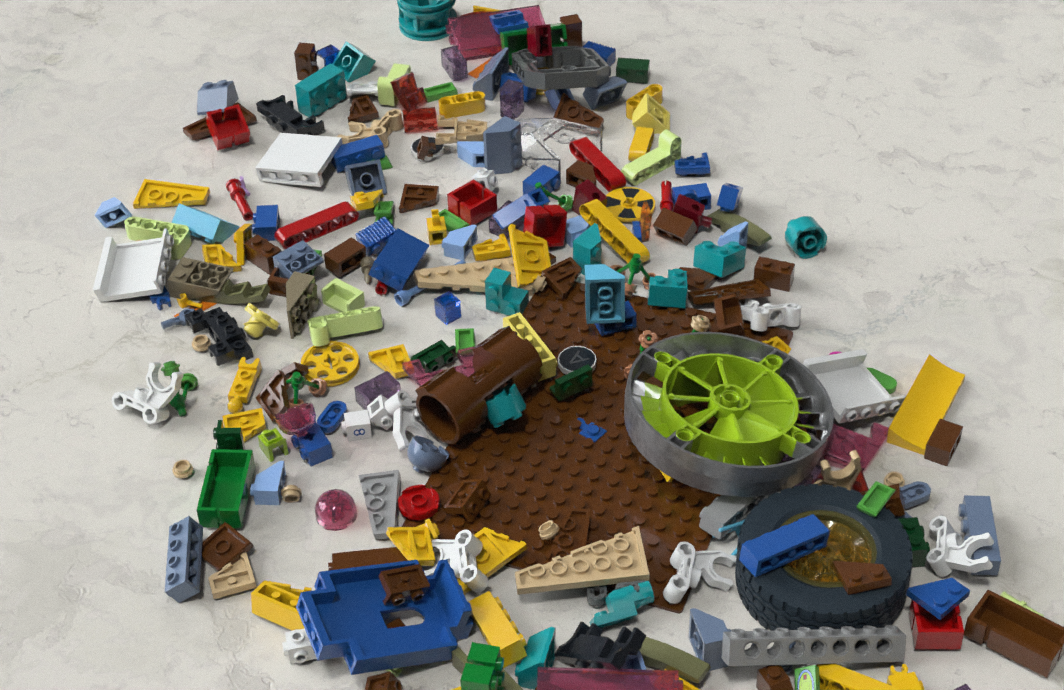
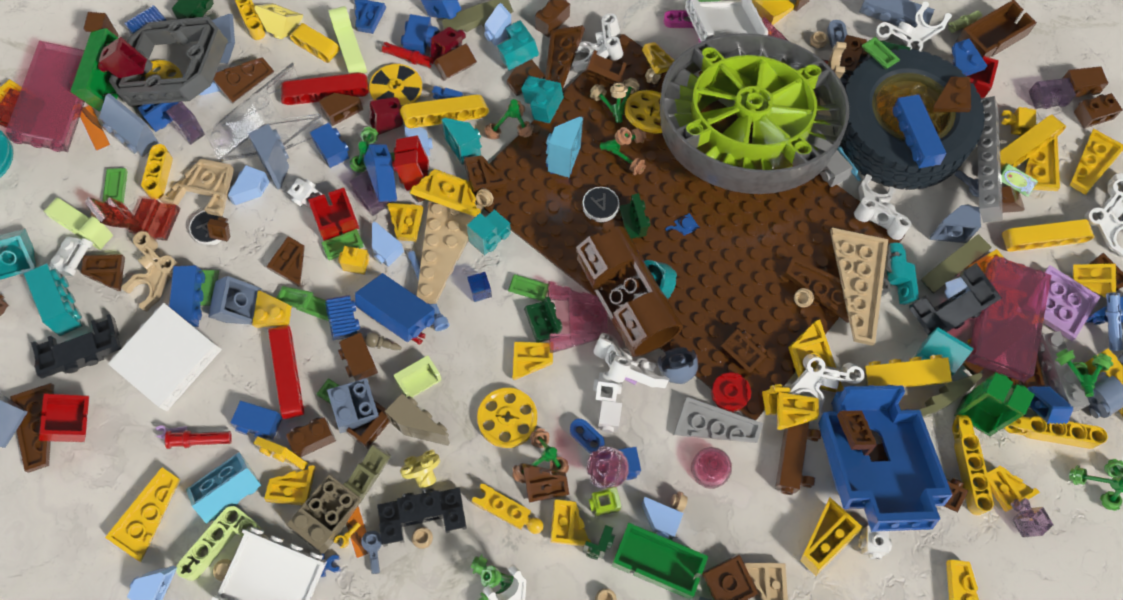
camera: 75 degrees left, 25 degrees up
(295, 367) = (516, 454): reddish brown tile -> none
(344, 323) = (463, 364): yellowish green beam -> none
(382, 385) = (570, 374): clear purple brick -> none
(454, 63) = (82, 154): clear purple brick -> none
(508, 21) = (53, 77): blue slope -> none
(524, 330) = (570, 234): light yellow brick -> none
(645, 222) = (429, 80): clear orange slope -> none

